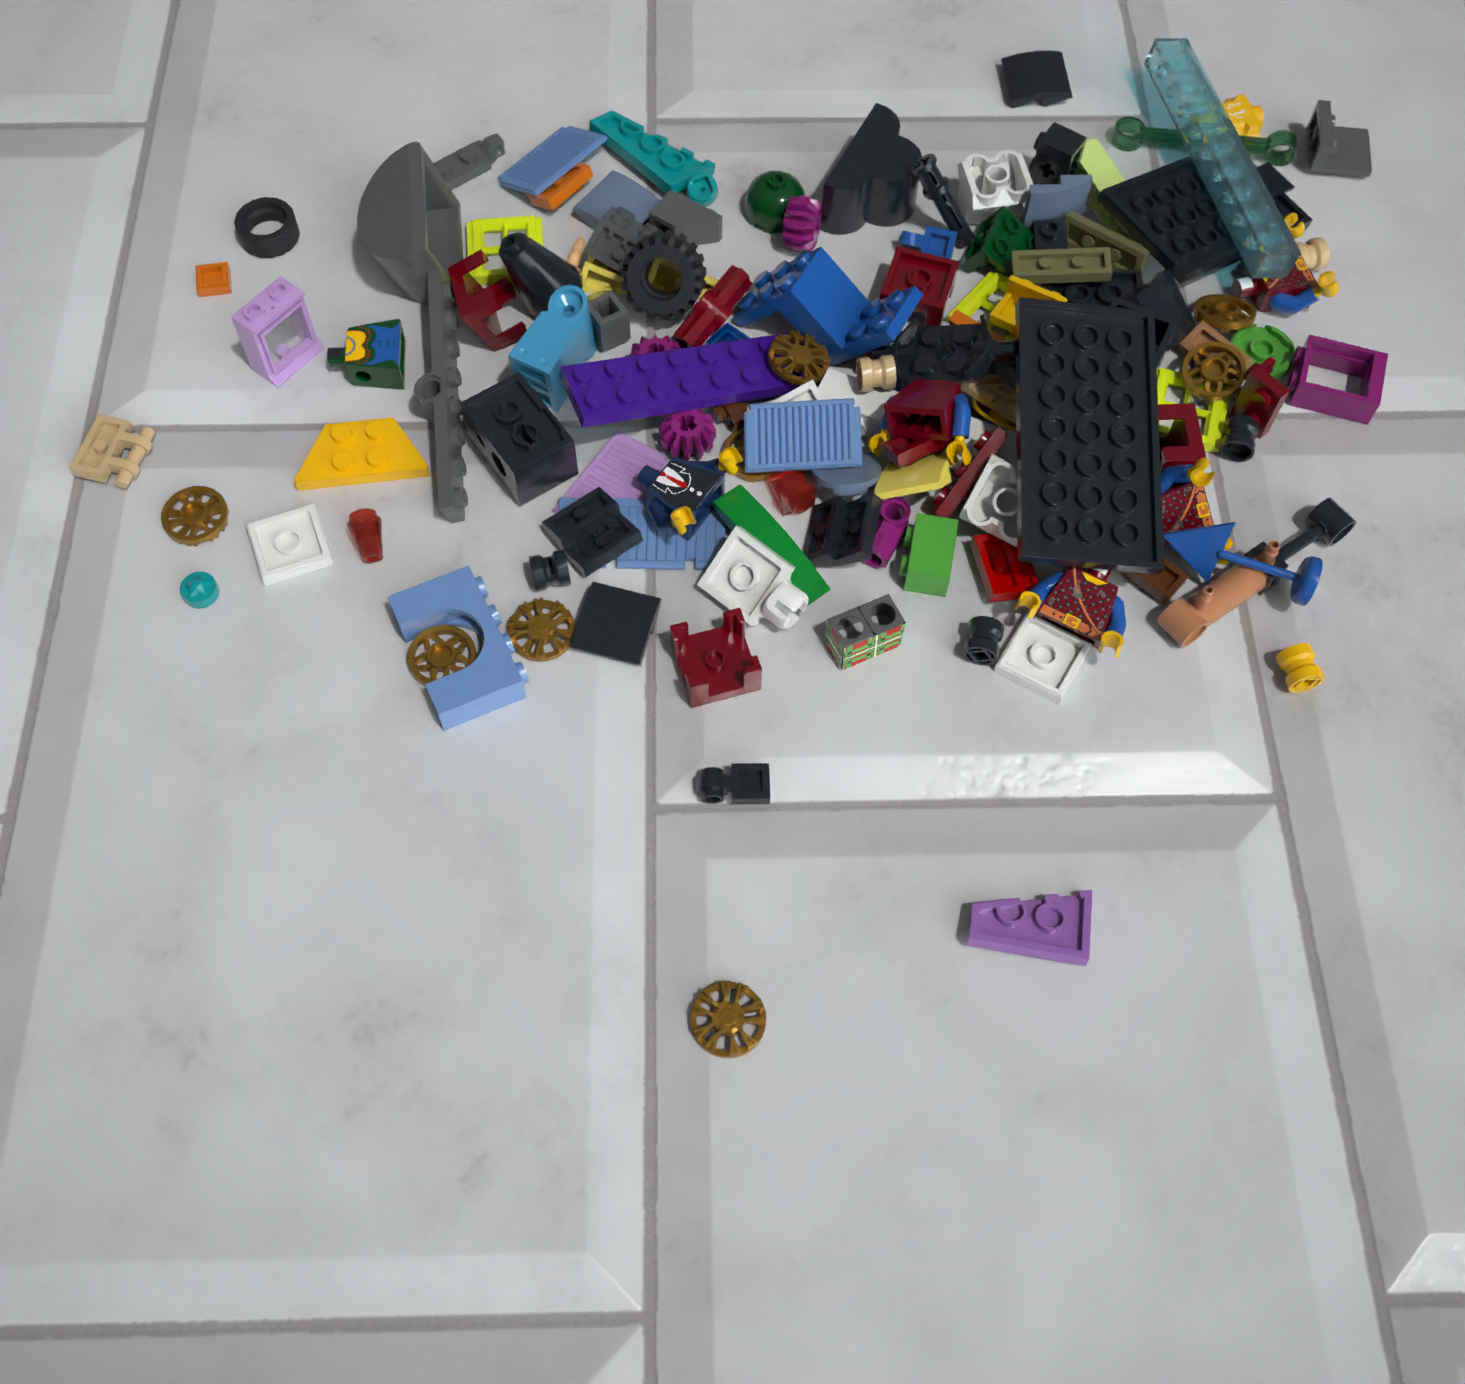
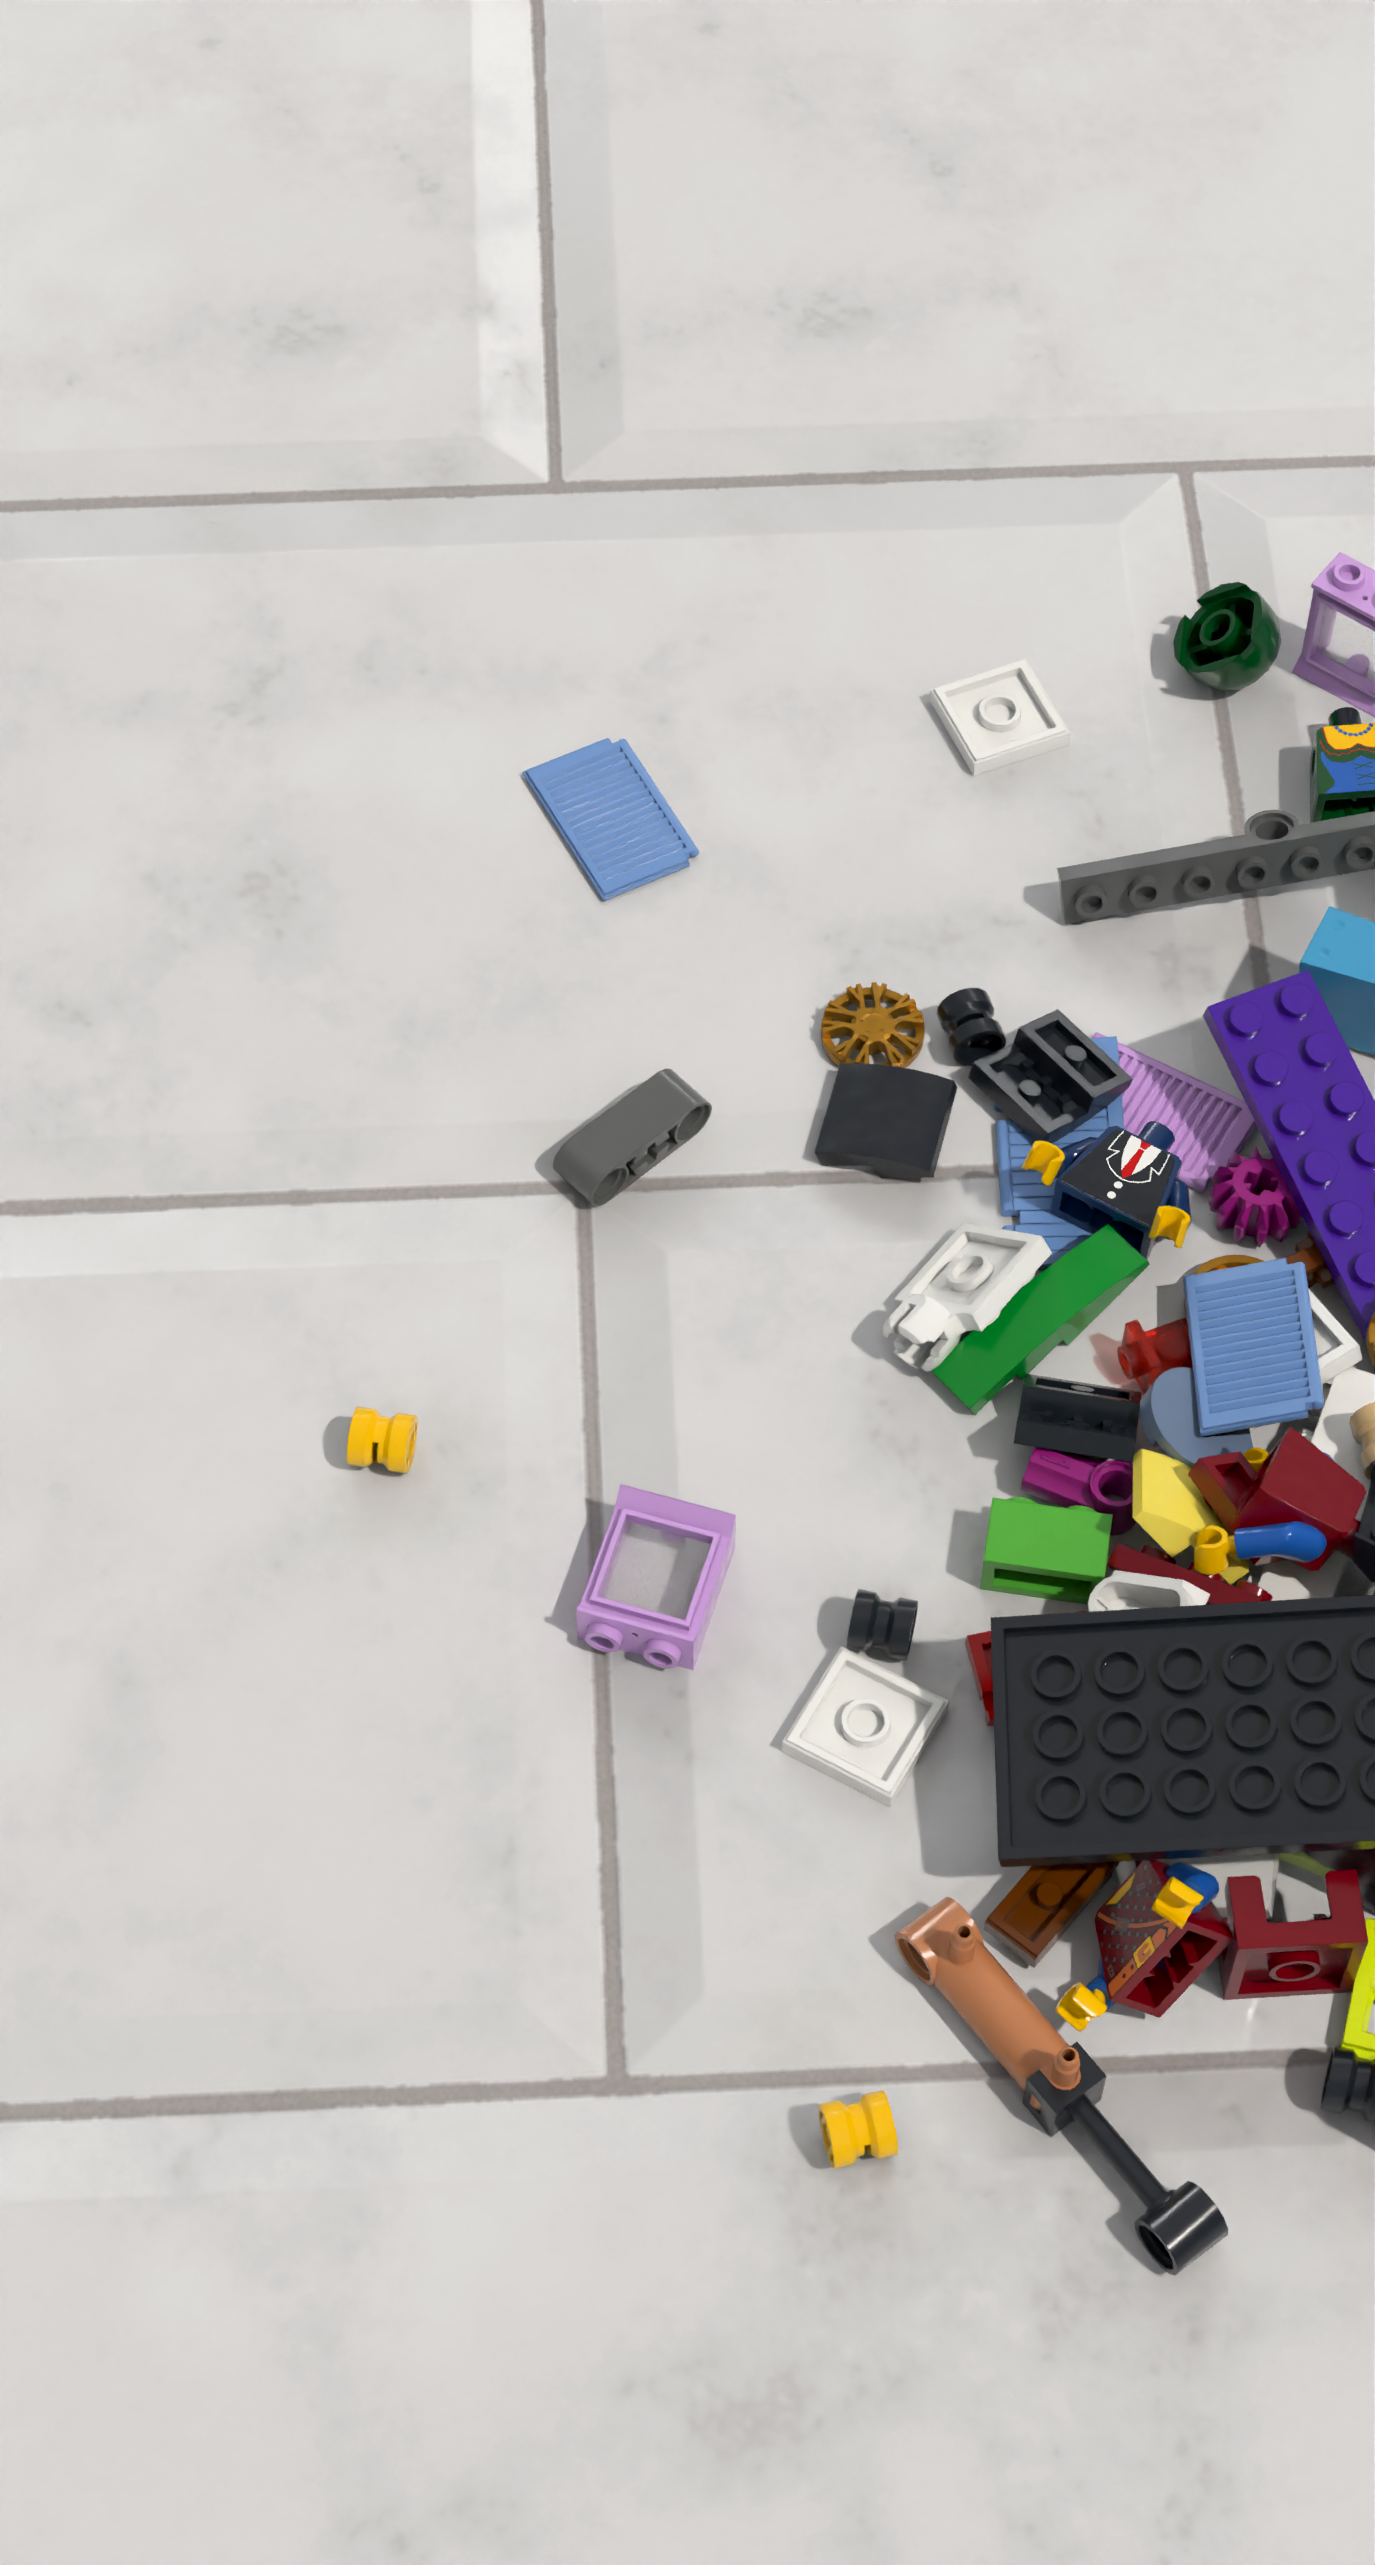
camera: 90 degrees right, 5 degrees down
(103, 447) = (1138, 481): tan plate -> none
(195, 515) = (1038, 603): pearl gold wheel -> none
(199, 590) = (911, 624): teal tile -> none
(260, 403) = (1228, 638): none -> dark green cylinder
(336, 784) = (612, 816): none -> medium blue window
(360, 455) = (1171, 778): yellow wing -> none
(367, 534) = (1017, 800): clear red cone -> none
(440, 655) = (817, 913): pearl gold wheel -> none
(460, 602) = (787, 972): medium blue arch -> none
(520, 438) = (1196, 951): black piece -> none
(623, 770) = (632, 1137): none -> dark grey beam
(715, 661) = (825, 1251): dark red panel -> none
(728, 1019) = (253, 1285): pearl gold wheel -> none
(747, 784) = (613, 1284): black plate -> none
(860, 926) = (382, 1439): none -> yellow wheel
(866, 645) = (911, 1491): piece -> none
(960, 763) = (656, 1578): none -> lavender window
(1040, 928) = (379, 1681): medium lavender wing -> none
(1080, 605) = (943, 1768): torso -> none
(1205, 546) = (1022, 2131): blue piece -> none

